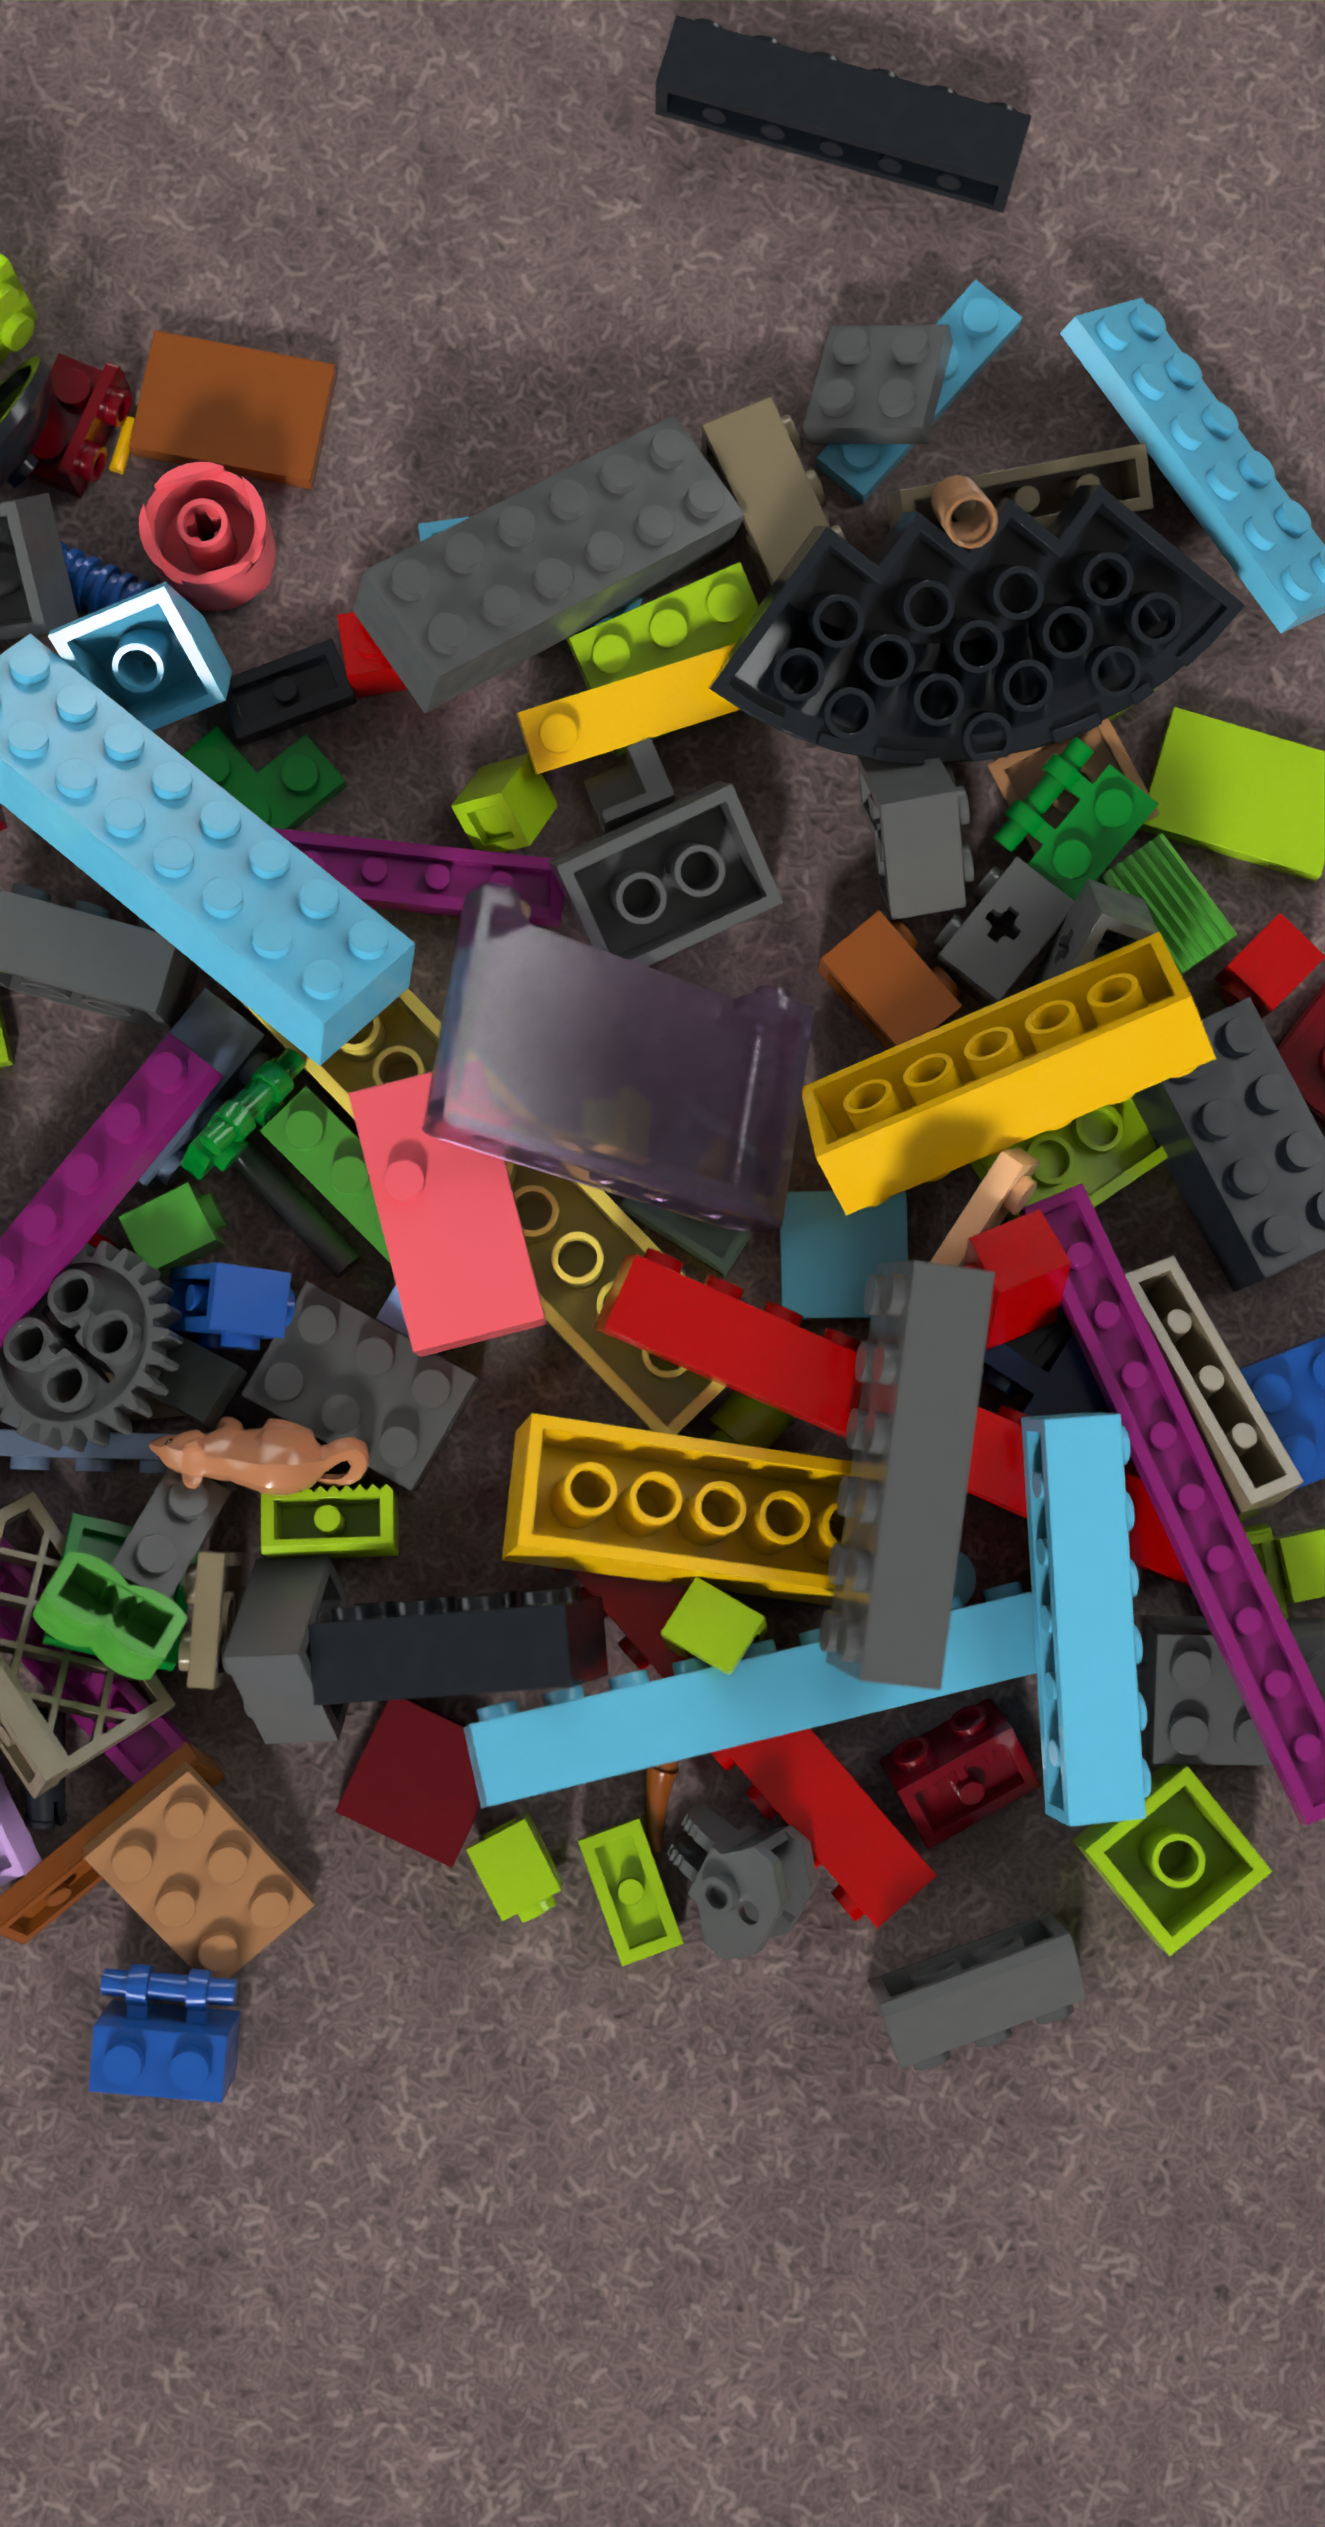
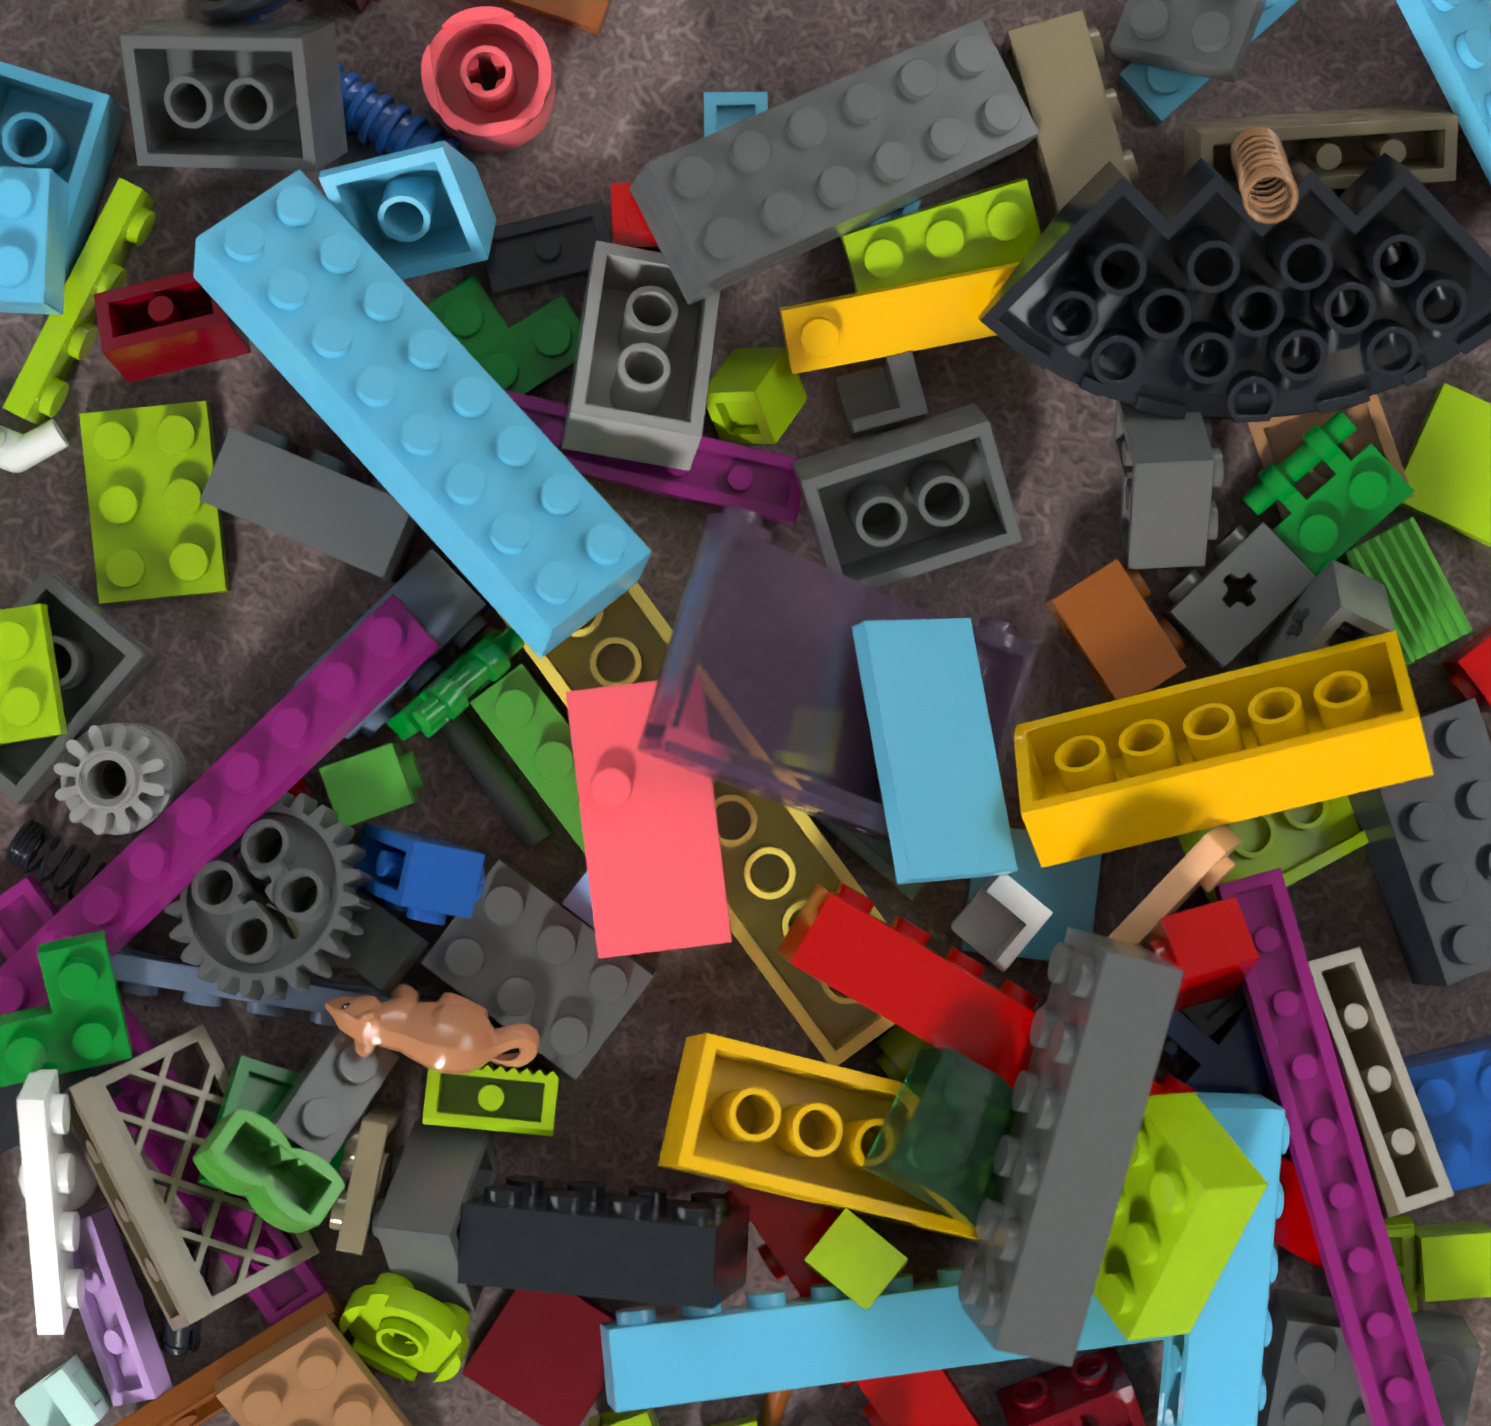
camera: 10 degrees right, 5 degrees up
(258, 1745) = (406, 1329): none -> lime plate
(385, 778) = (639, 362): none -> light grey brick
(723, 1112) = (934, 749): none -> medium azure tile
(785, 1485) = (945, 1133): none -> clear green slope
(814, 1277) = (1000, 920): none -> white panel
(1023, 1536) = (1175, 1219): none -> lime brick

